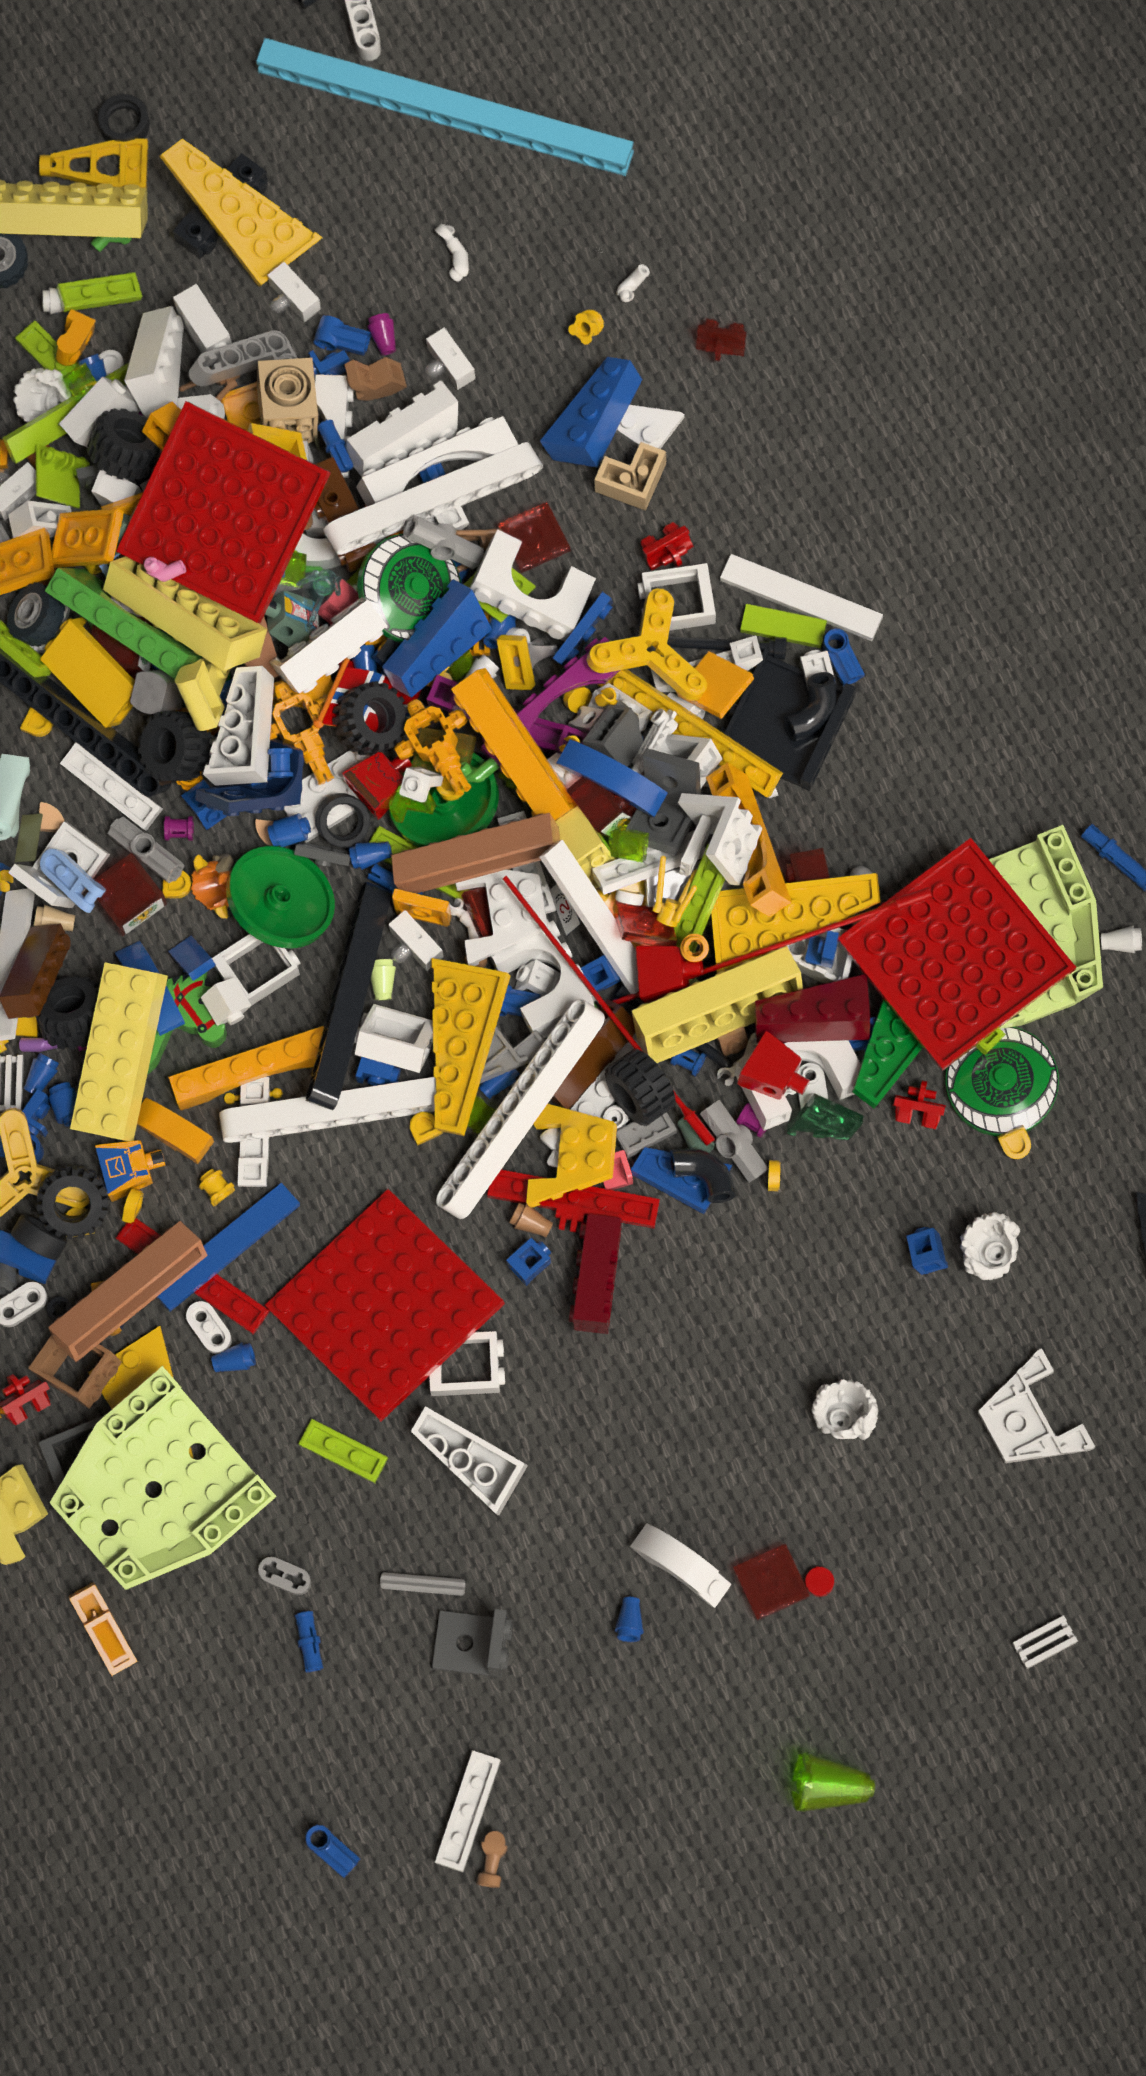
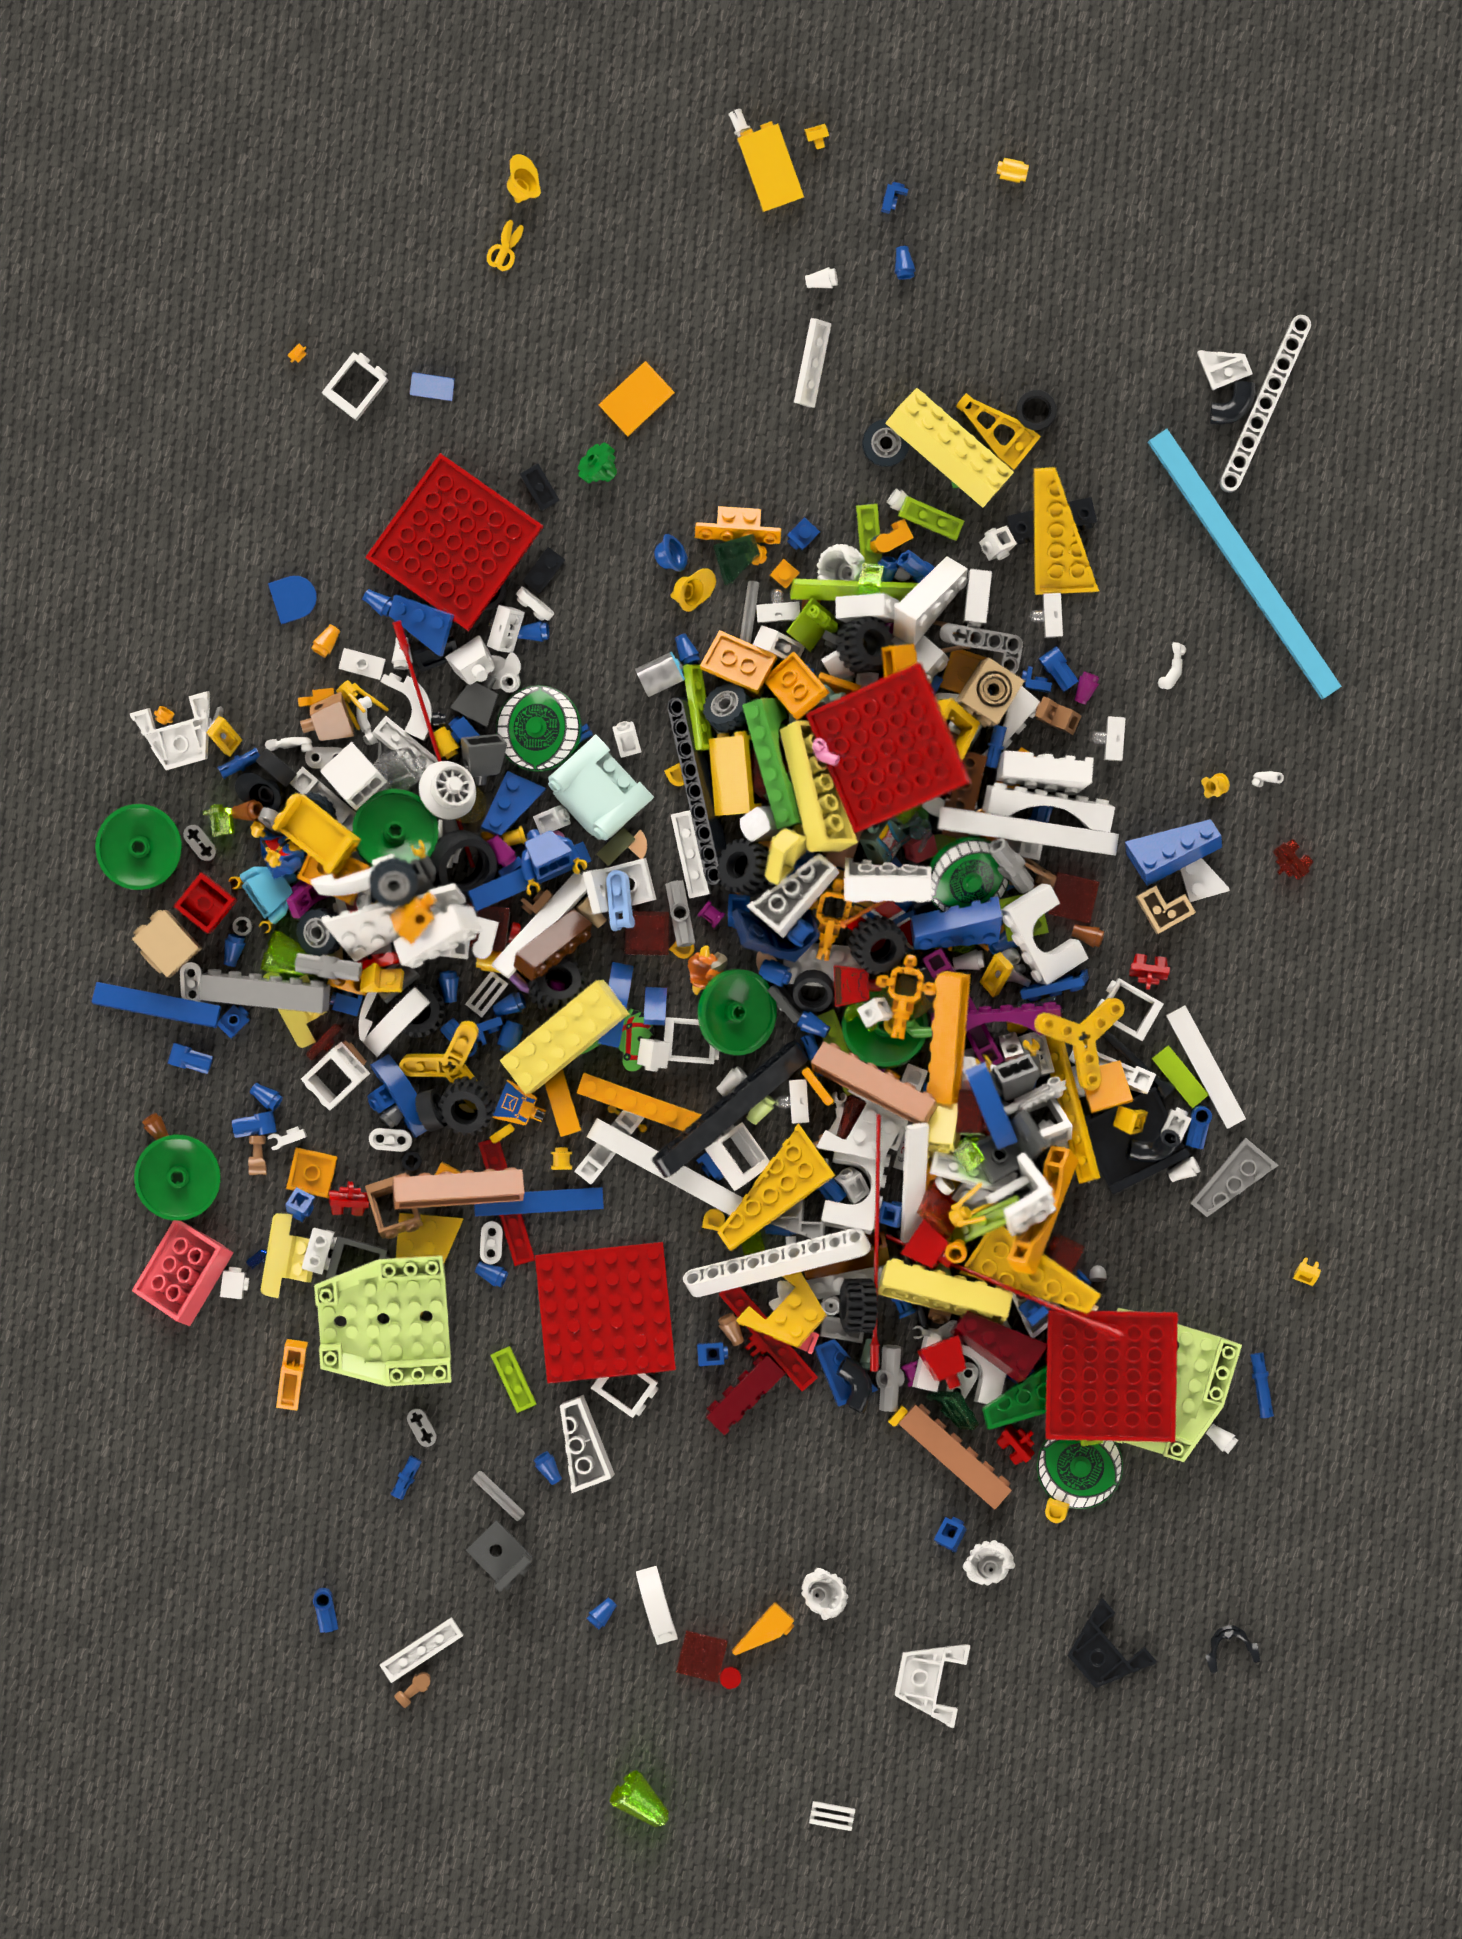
camera: 25 degrees right, 15 degrees up
(29, 1473) = (317, 1252): none -> white bracket
(116, 344) = (914, 566): none -> blue piece
(184, 264) = (997, 543): none -> white brick
(329, 973) = (731, 1080): none -> white cone
(451, 1512) = (547, 1466): none -> blue cone
(581, 558) = (1090, 935): none -> dark orange cone
(766, 696) = (1130, 1120): none -> yellow slope
(818, 1491) = (767, 1628): none -> light orange slope
(863, 707) = (1186, 1168): none -> white cone
(866, 1168) = (954, 1456): none -> nougat brick
(919, 671) = (1237, 1173): none -> light grey wing
(1070, 714) = (1307, 1273): none -> yellow tile

